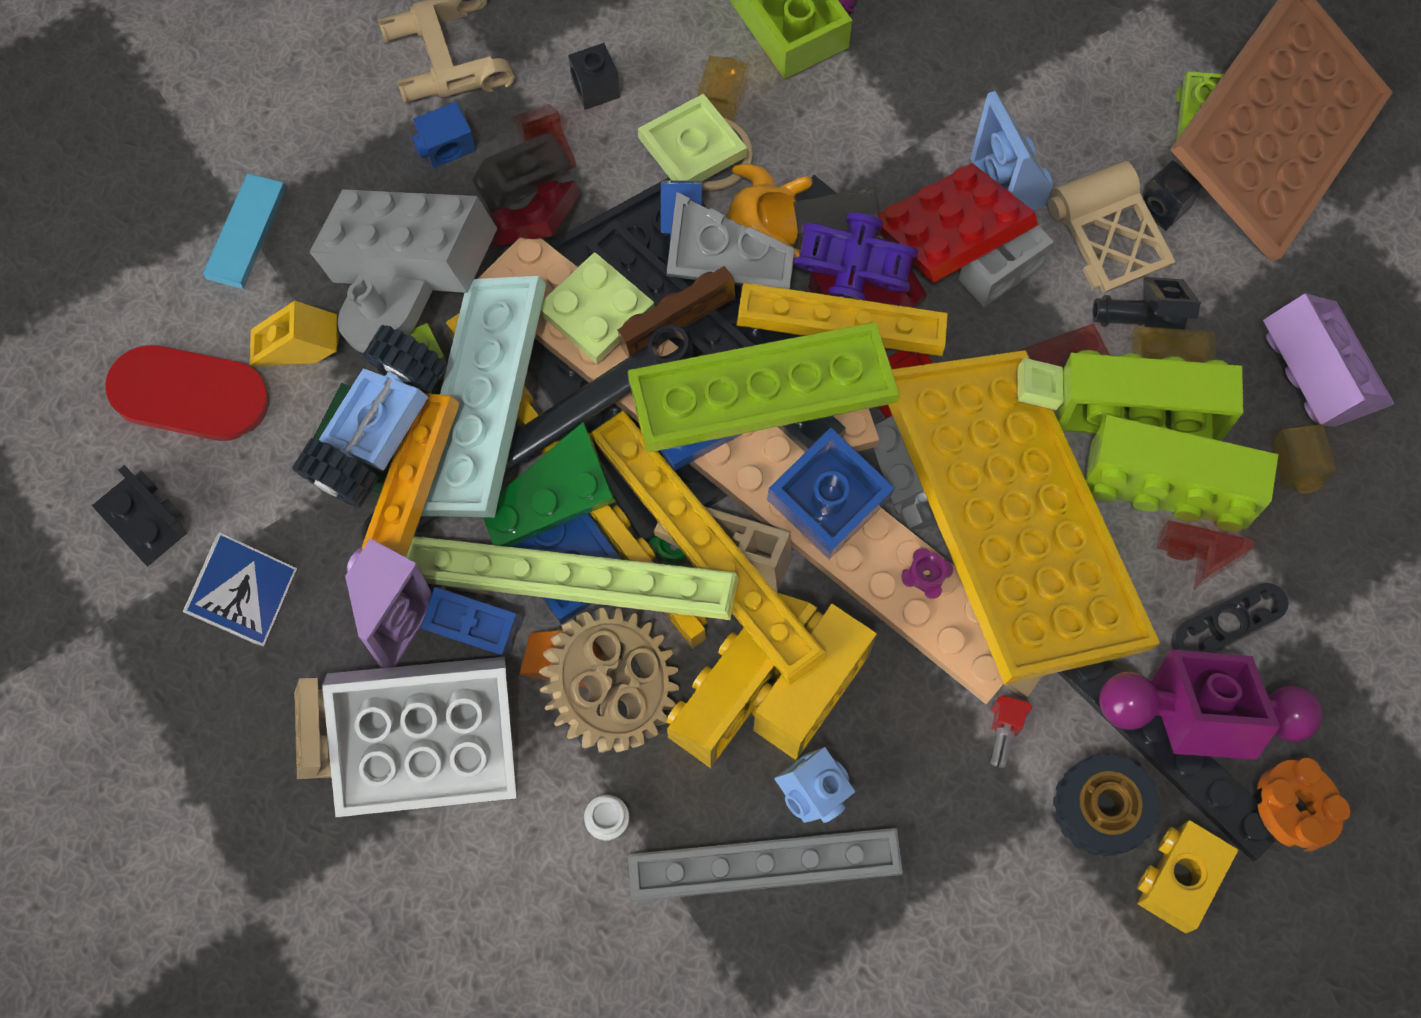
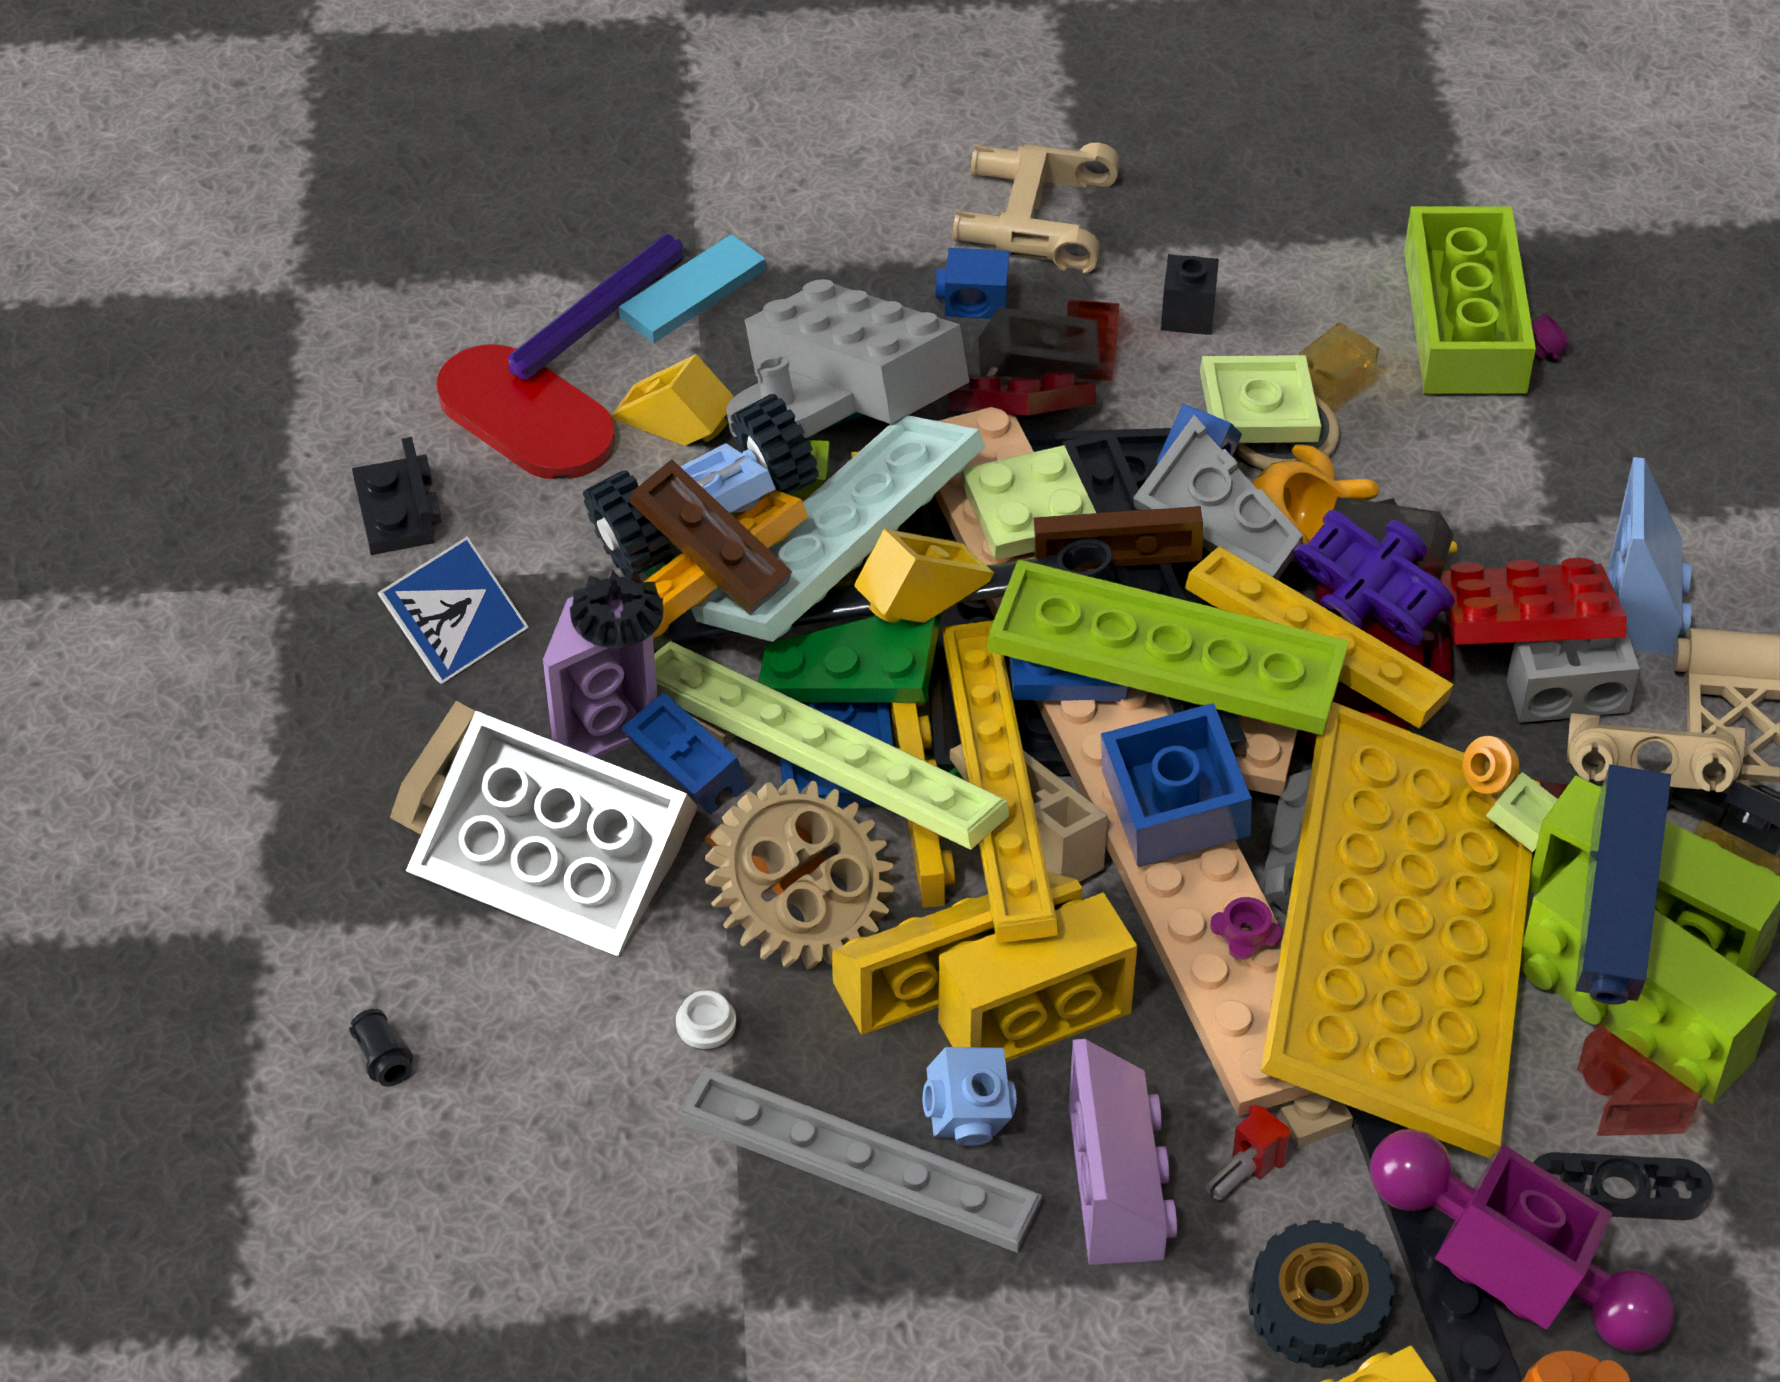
camera: 30 degrees right, 20 degrees down
(187, 283) = (595, 307): none -> dark purple axle
(383, 590) = (597, 624): none -> black gear
(402, 963) = (381, 1048): none -> black pin
(410, 465) = (710, 536): none -> reddish brown plate
(566, 415) = (918, 576): none -> yellow slope
(934, 781) = (1118, 1158): none -> lavender slope
(1008, 354) = (1503, 765): none -> light orange plate
(1070, 317) = (1697, 758): none -> tan connector
(1161, 434) = (1622, 884): none -> dark blue slope

